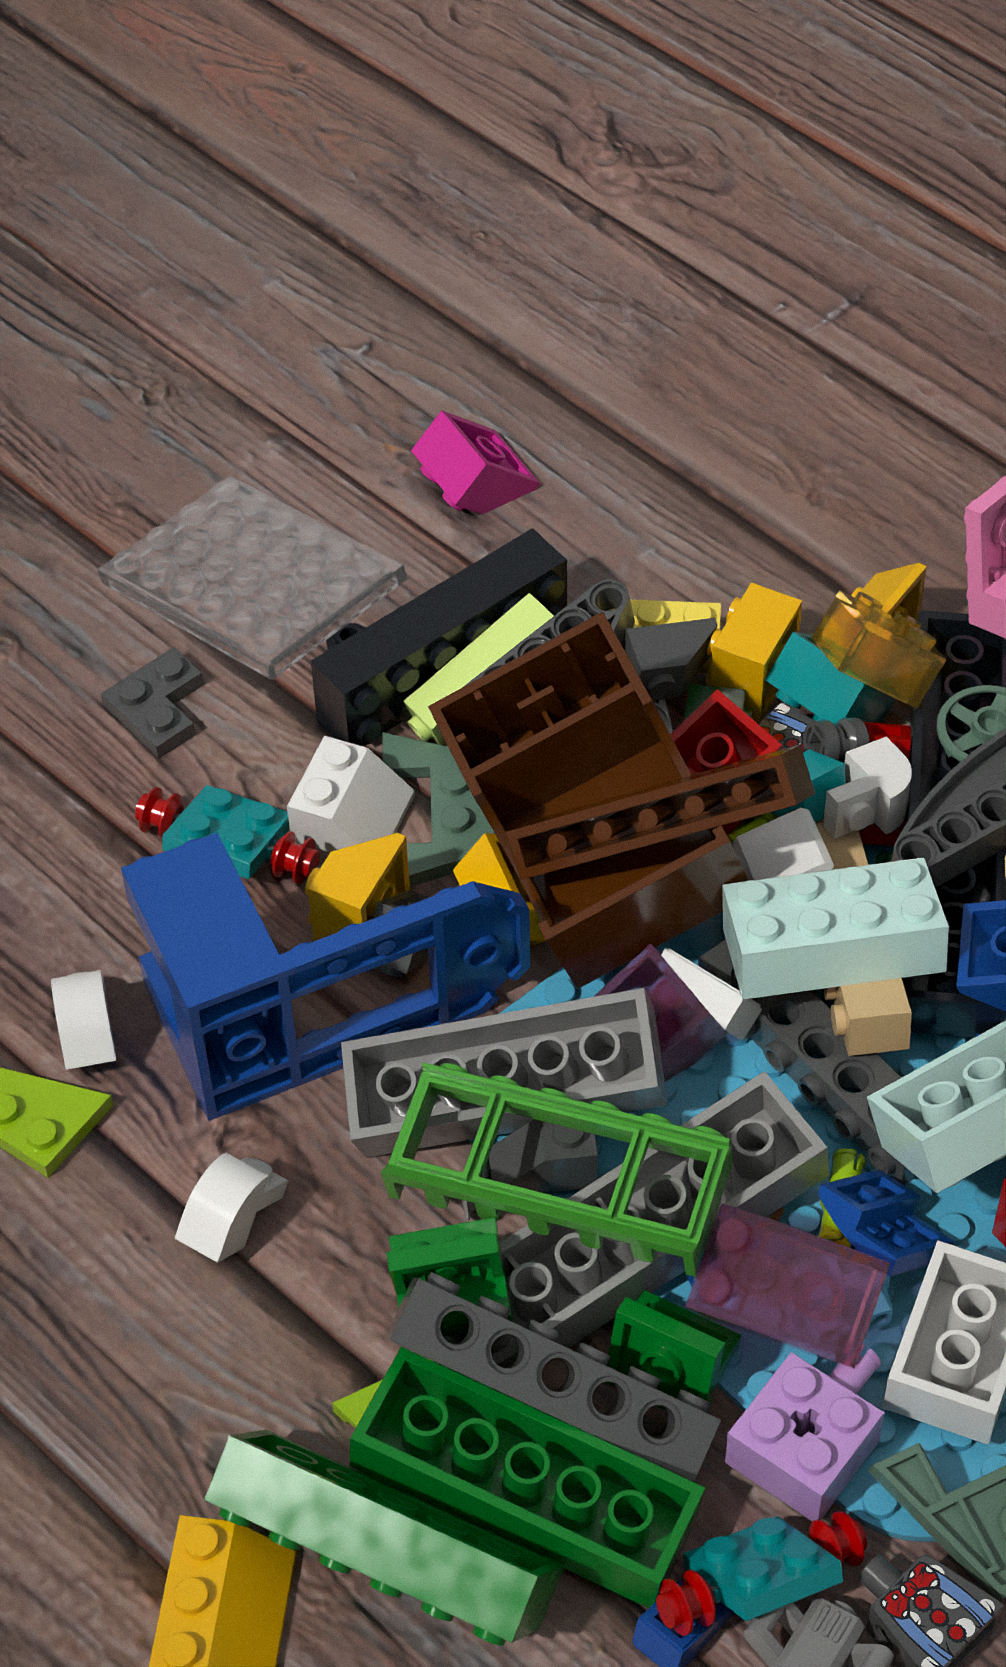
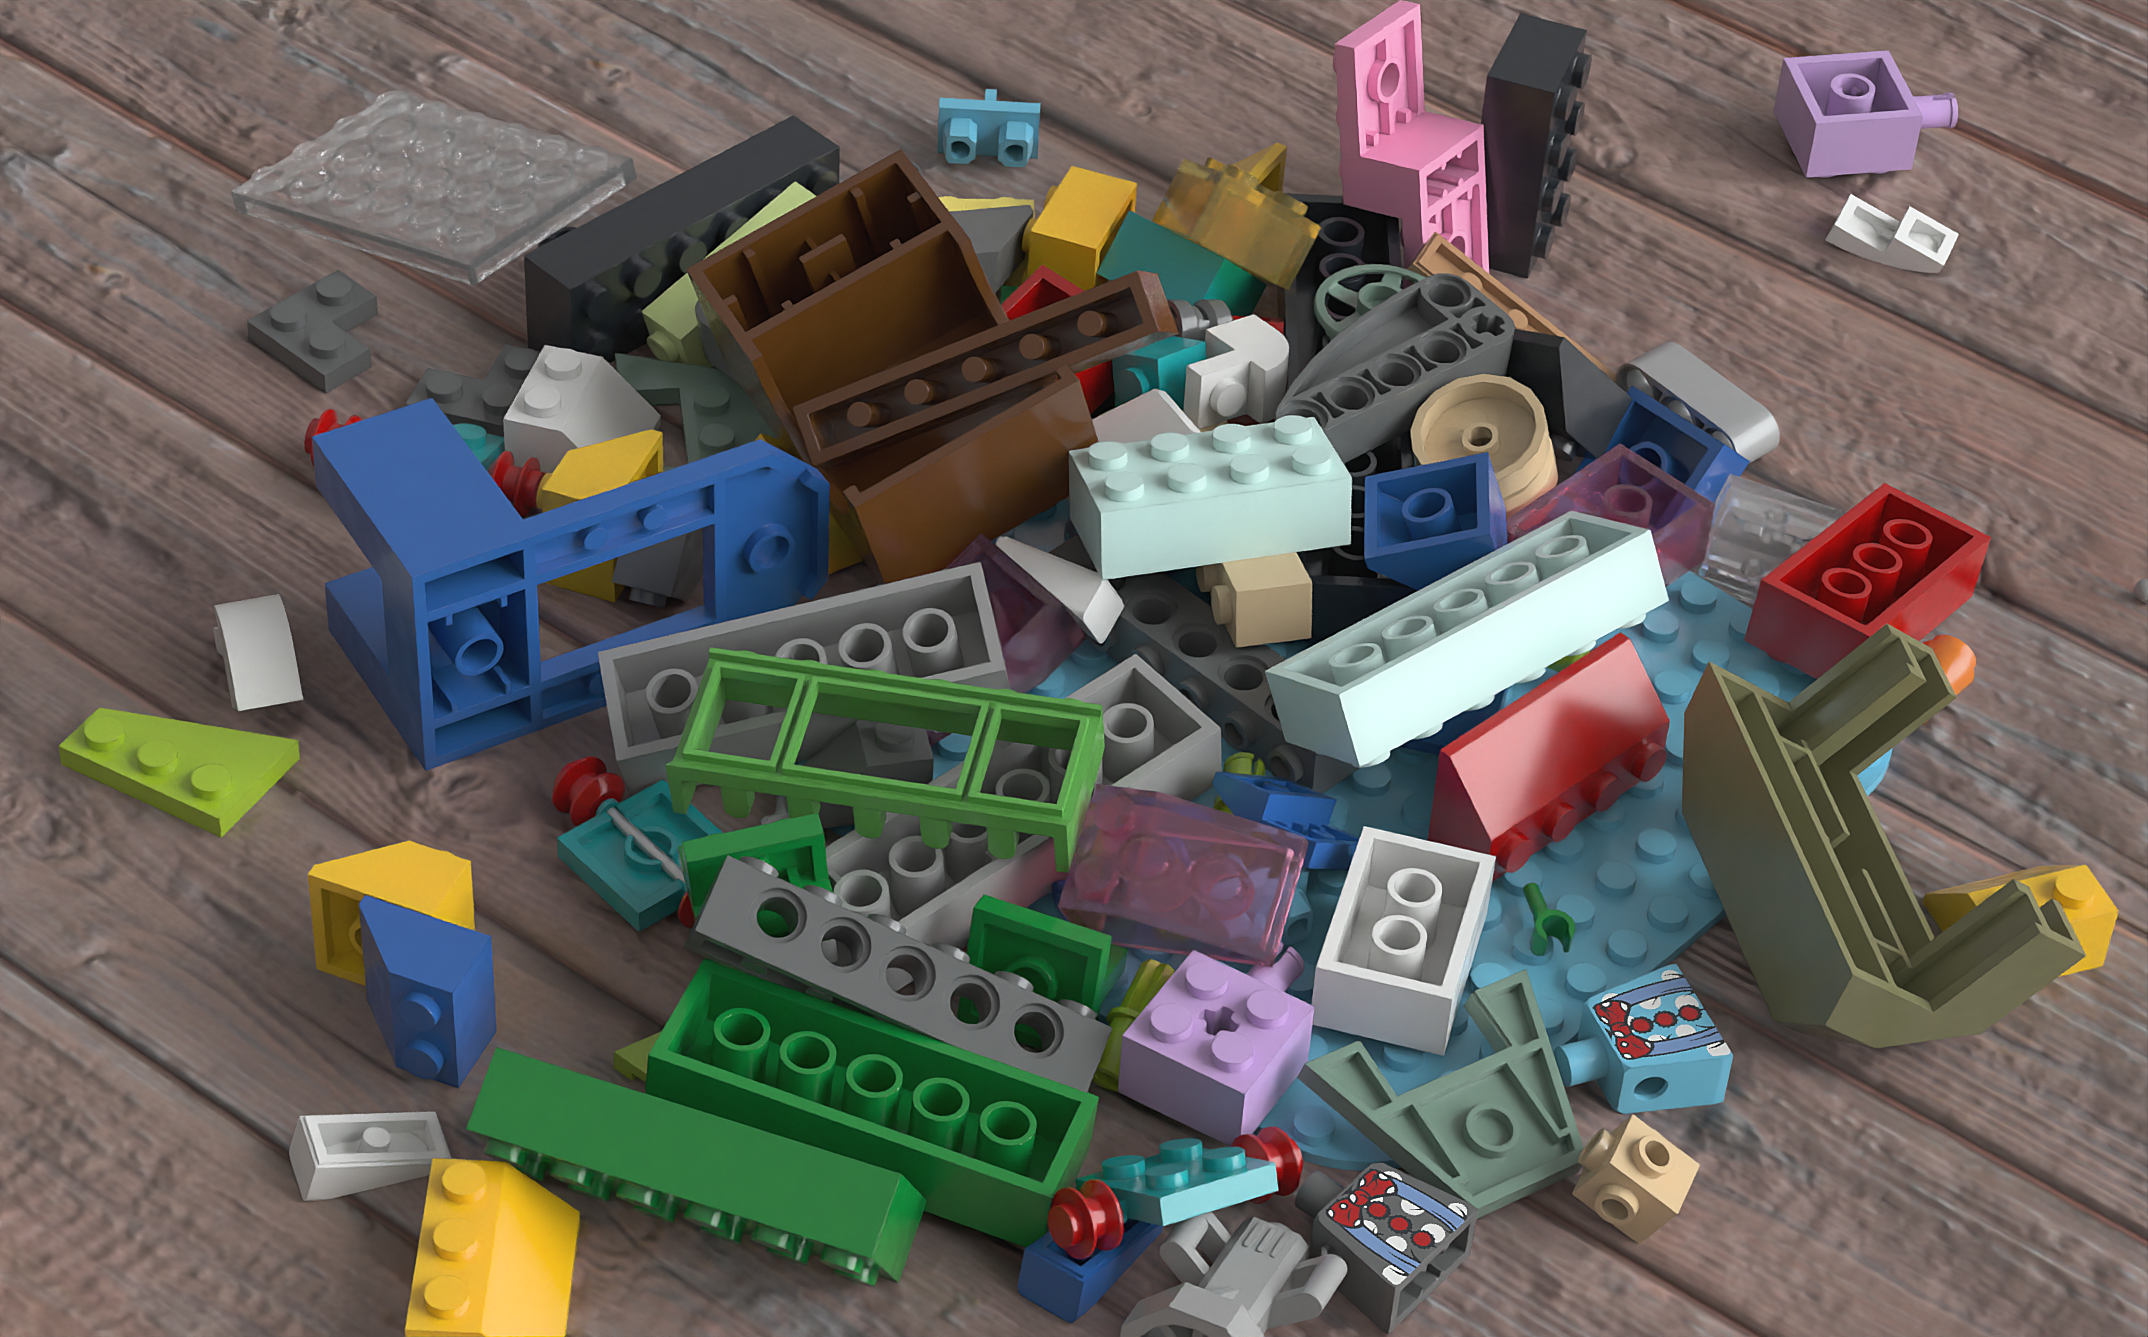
camera: 10 degrees left, 10 degrees down
(136, 1485) = (363, 1151): none -> white slope
(171, 1281) = (399, 874): none -> yellow slope
(192, 1350) = (428, 989): none -> blue slope
(226, 1203) = (472, 827): white brick -> none
(272, 776) = (474, 399): none -> dark grey plate
(356, 1208) = (627, 846): none -> teal plate
(472, 464) = (702, 73): dark pink slope -> none
(692, 521) = (988, 129): none -> medium azure hips
(752, 1377) = (1145, 985): none -> lime axle

